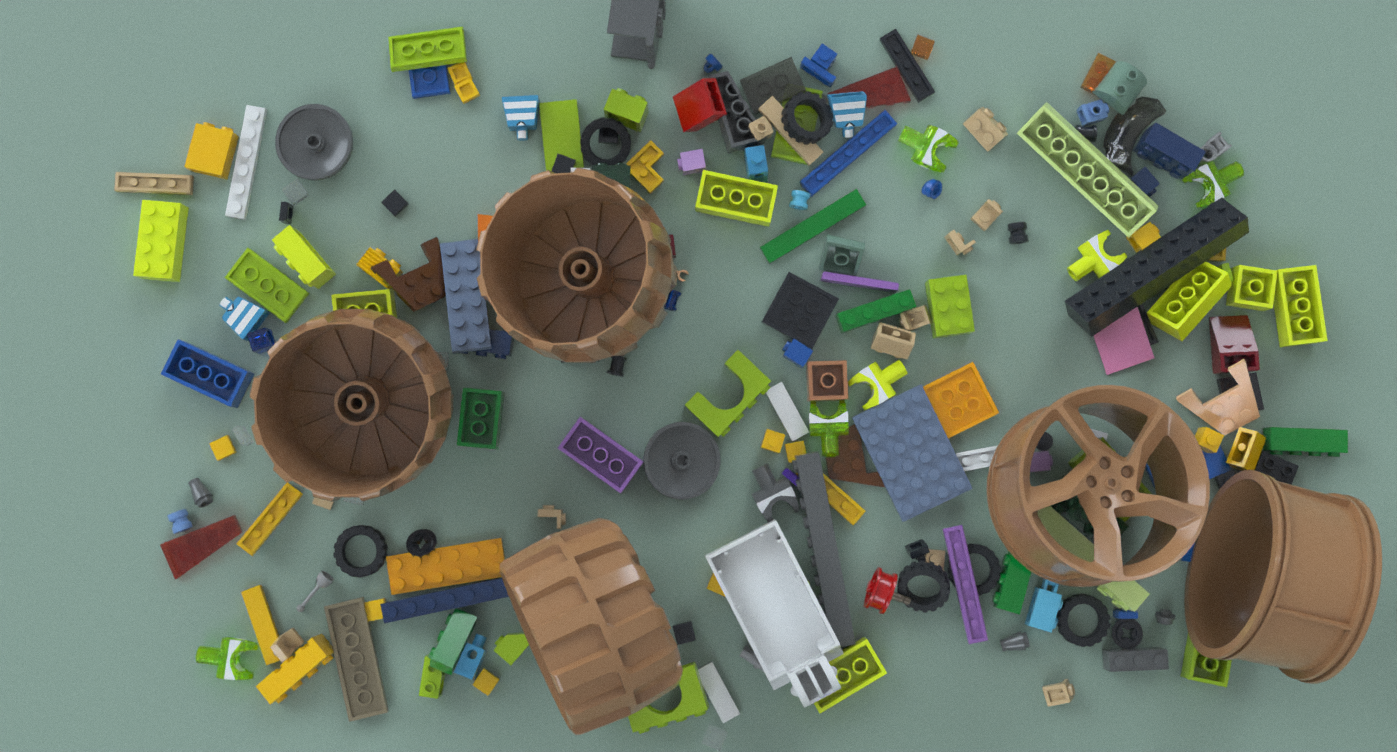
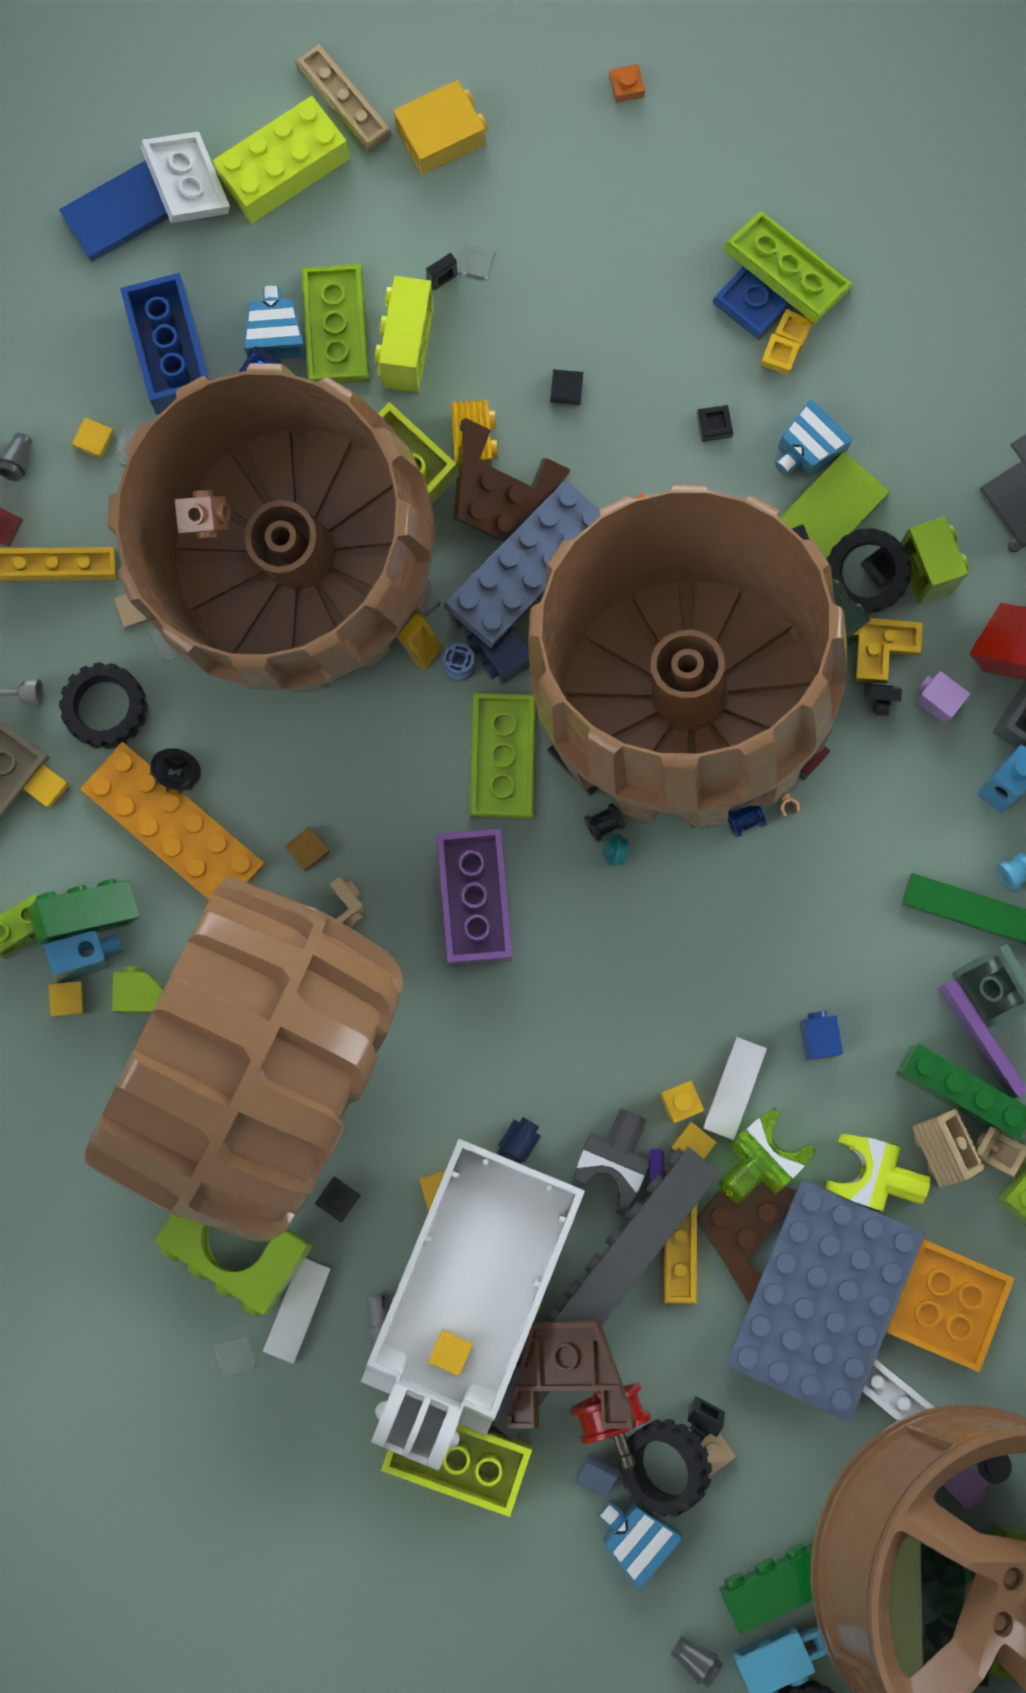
camera: 55 degrees right, 5 degrees down
(117, 334) = (115, 211): none -> blue tile
(129, 295) = (185, 177): none -> white plate
(246, 162) = (461, 177): white plate -> none
(268, 43) = (627, 83): none -> orange plate
(314, 142) = (556, 231): dark grey dish -> none
(316, 432) = (202, 514): none -> nougat brick
(443, 600) = (123, 855): dark blue brick -> none
(460, 377) = (420, 641): none -> yellow plate
(473, 149) = (715, 423): none -> black tile
(480, 418) = (392, 710): green brick -> none
(485, 370) = (460, 668): none -> medium blue wheel
(511, 512) = (307, 848): none -> pearl gold tile
(545, 385) = (502, 756): none -> lime tile
(634, 371) = (616, 850): none -> teal plate
(668, 188) = (882, 696): none -> black tile
(681, 460) = (555, 1006): dark grey dish -> none
(727, 529) = (519, 1140): none -> dark blue brick
(736, 198) = (947, 789): neon yellow brick -> none
(753, 383) = (732, 1015): lime arch -> none
(795, 639) = (450, 1352): none -> yellow tile
(800, 310) = (878, 993): black plate -> none
(827, 380) = (820, 1105): nougat brick -> none
(842, 589) = (569, 1359): none -> reddish brown wing
(902, 618) = (597, 1475): none -> sand blue tile
(944, 624) = (638, 1540): none -> torso
(965, 584) = (715, 1523): medium lavender tile -> none
(995, 568) = (779, 1531): black tyre -> none

